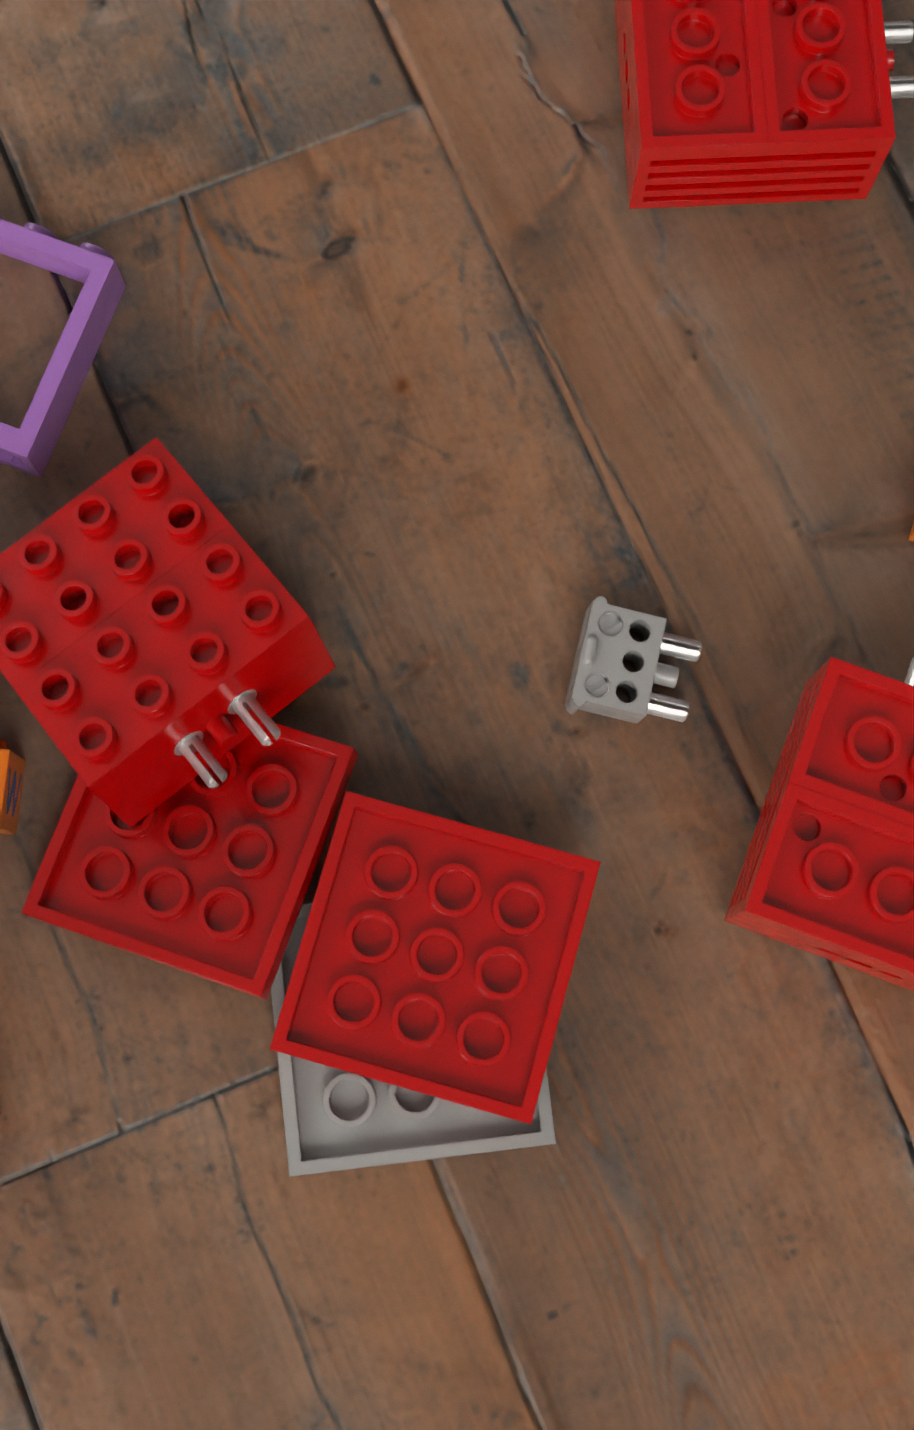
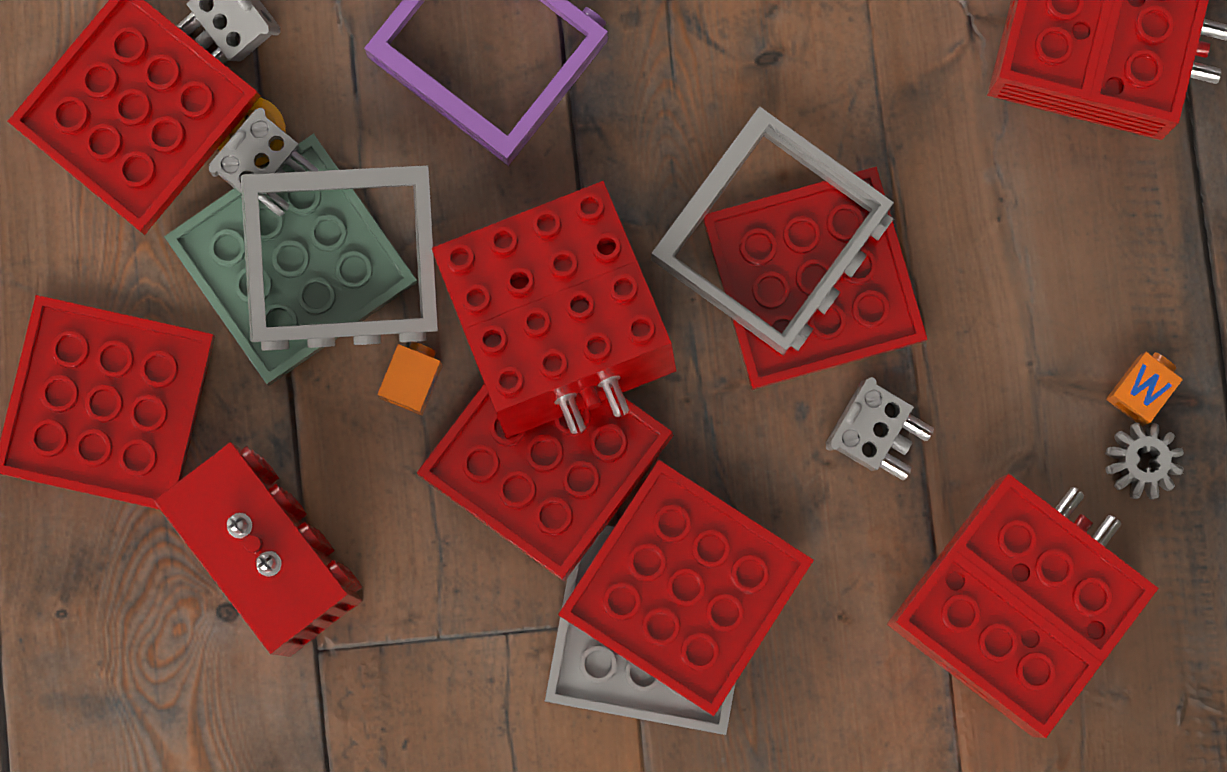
camera: 15 degrees right, 5 degrees up
(438, 339) = (765, 125): none -> light grey window
(482, 497) = (776, 255): none -> red plate

